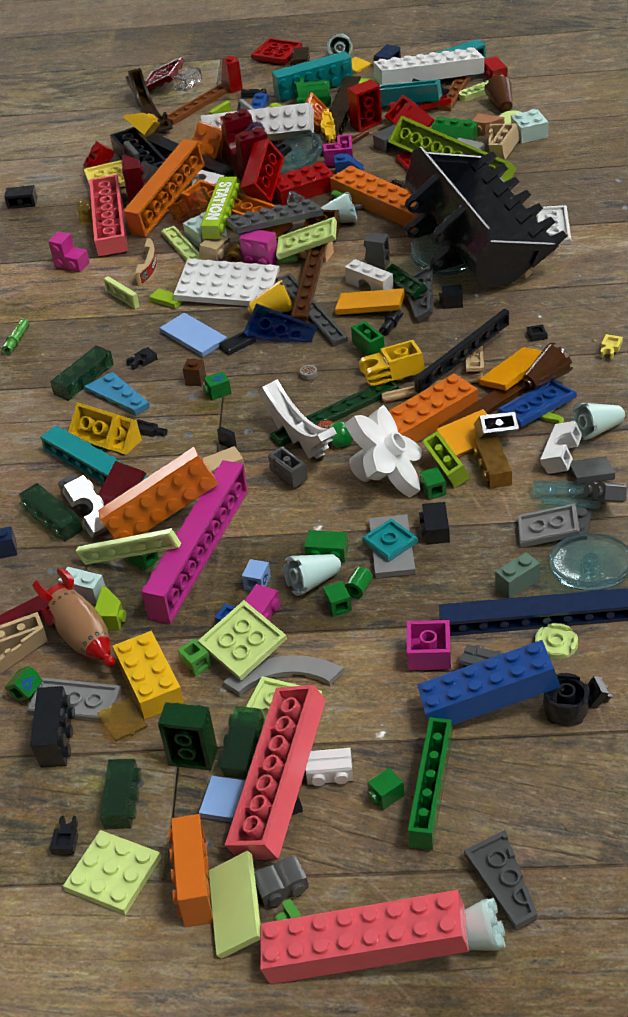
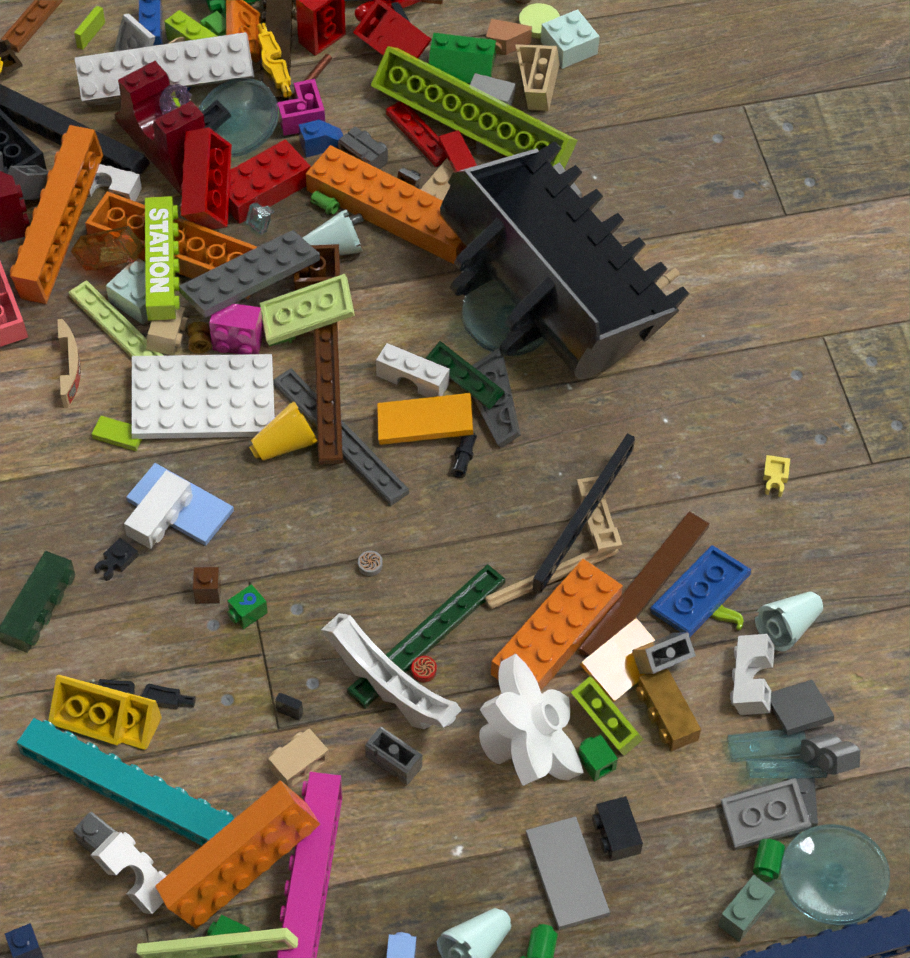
camera: 20 degrees left, 15 degrees up
(50, 512) = (73, 879): clear green brick -> none
(118, 392) = (95, 628): dark azure wing -> none
(119, 480) = (167, 829): dark red tile -> none
(121, 292) = (47, 430): yellowish green tile -> none
(176, 331) = (158, 509): none -> white brick
(209, 139) = (96, 103): orange brick -> none
(236, 343) = (250, 513): black tile -> none
(274, 325) = (301, 483): clear blue wedge -> none
(327, 543) = (482, 890): green brick -> none
(343, 437) = (447, 681): green hair -> none
(367, 338) = (443, 498): green brick -> none
(374, 169) = (363, 147): none -> dark grey brick
(377, 250) = (413, 320): dark grey brick -> none
(381, 139) = (362, 74): dark grey brick -> none
(390, 540) = (565, 868): teal tile -> none
(392, 363) = (491, 542): yellow brick -> none
(451, 296) = (539, 398): black brick -> none
(510, 370) = (658, 531): light orange tile -> none
(537, 333) = (670, 455): black tile -> none
(542, 549) = (768, 859): none -> green brick
(548, 366) = (706, 533): reddish brown cone -> none
(560, 216) = (646, 222): white tile -> none

